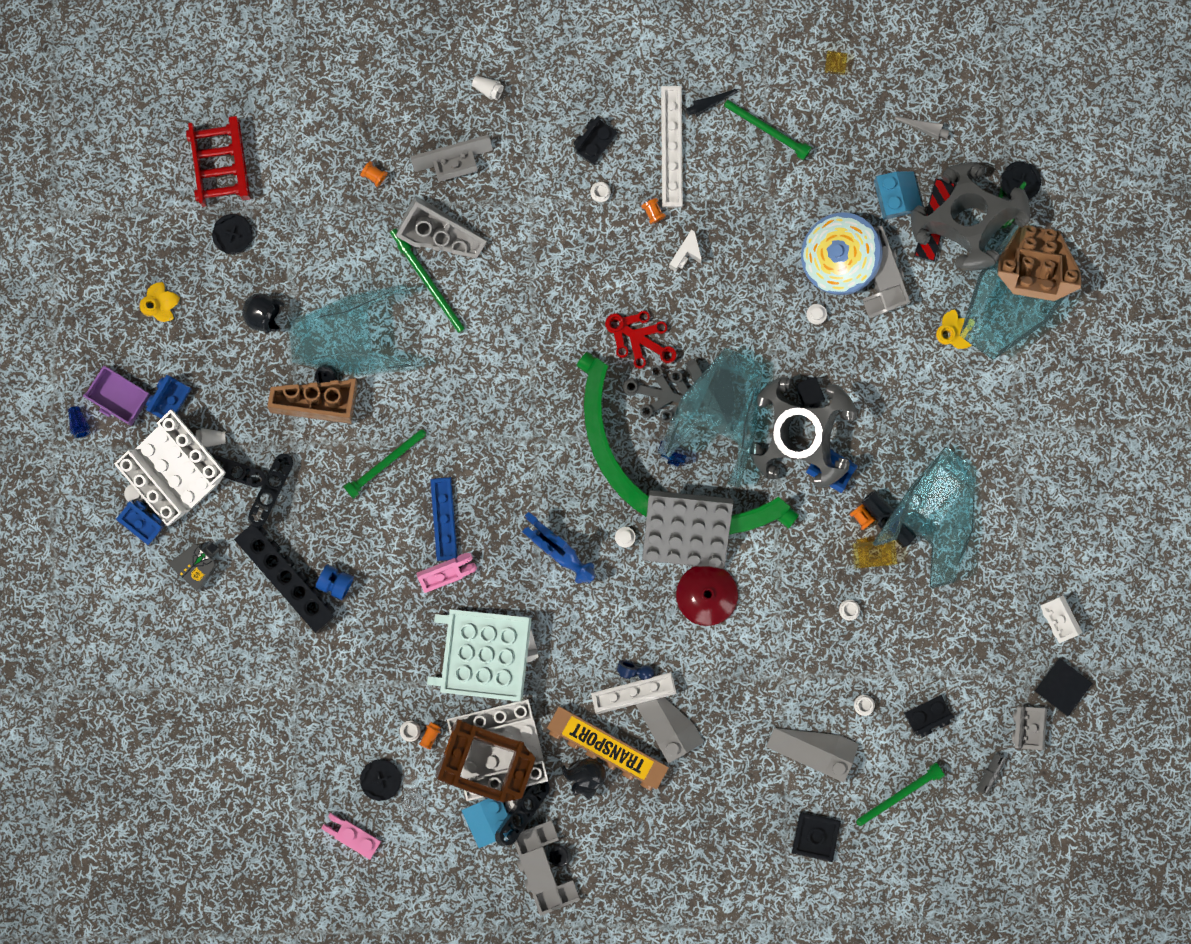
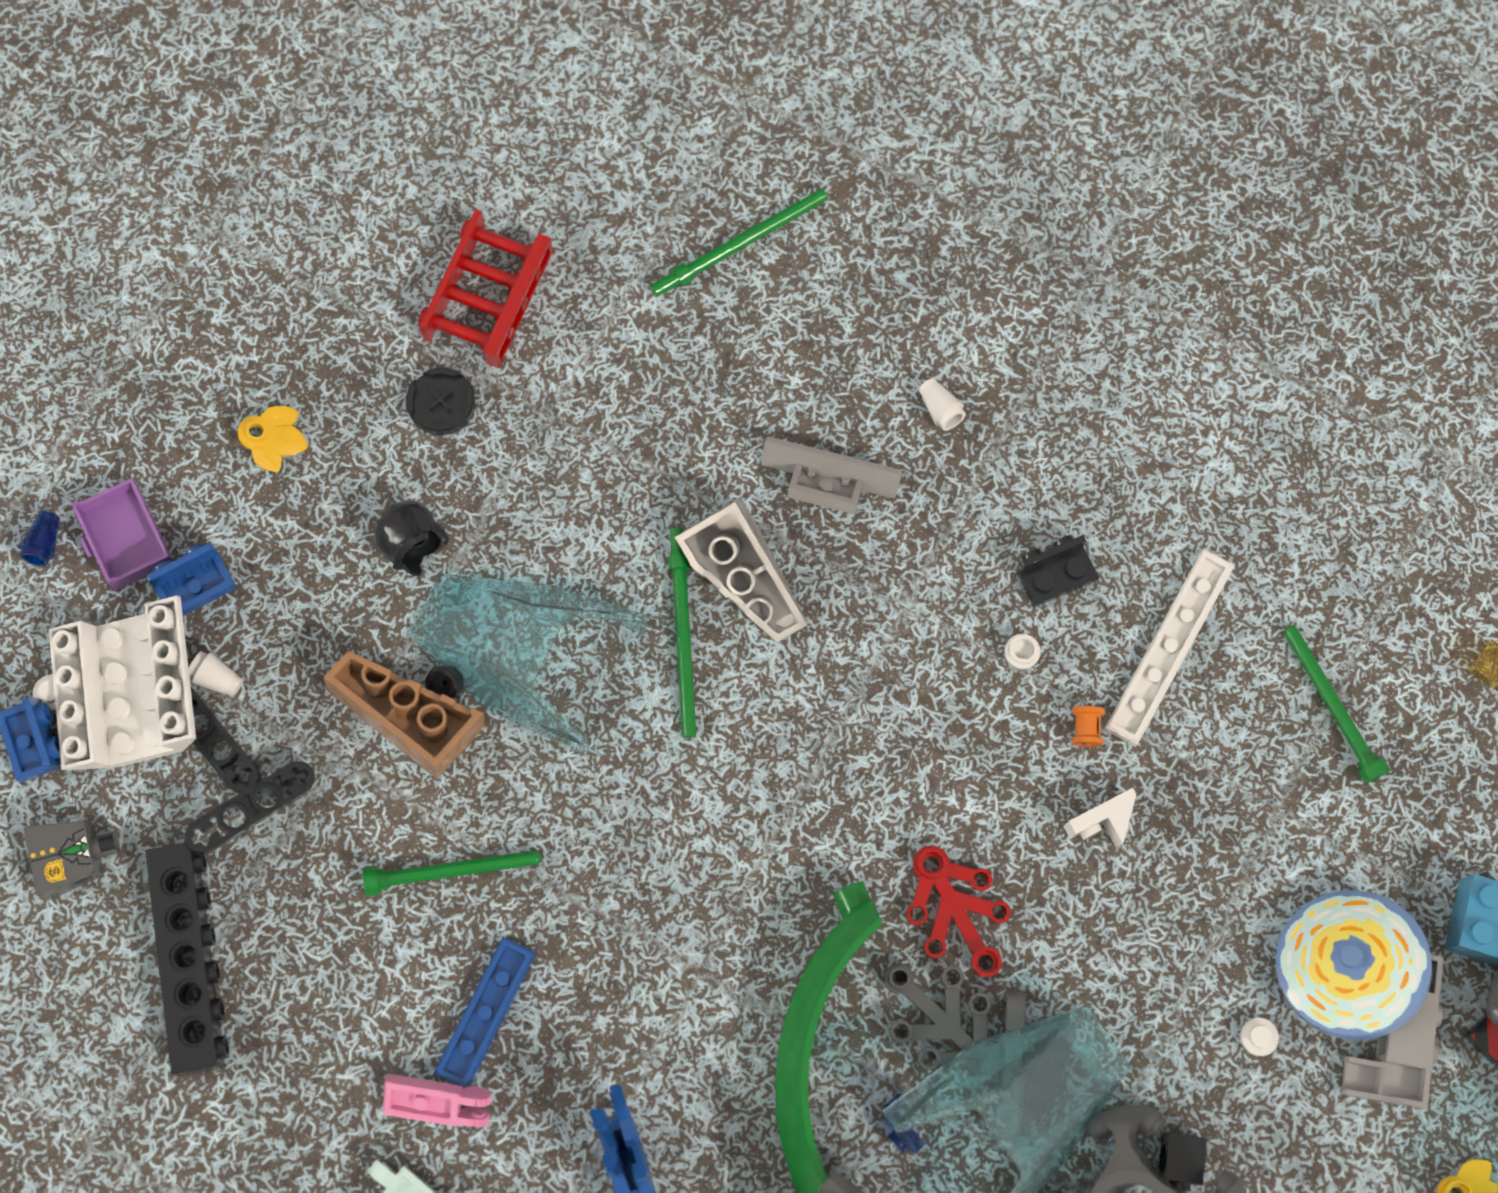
camera: 25 degrees right, 10 degrees down
(315, 93) = (684, 273): none -> green bar
(339, 587) = (262, 1021): blue wheel -> none
(373, 174) = (698, 432): orange bush -> none
(701, 105) = (1251, 612): black piece -> none

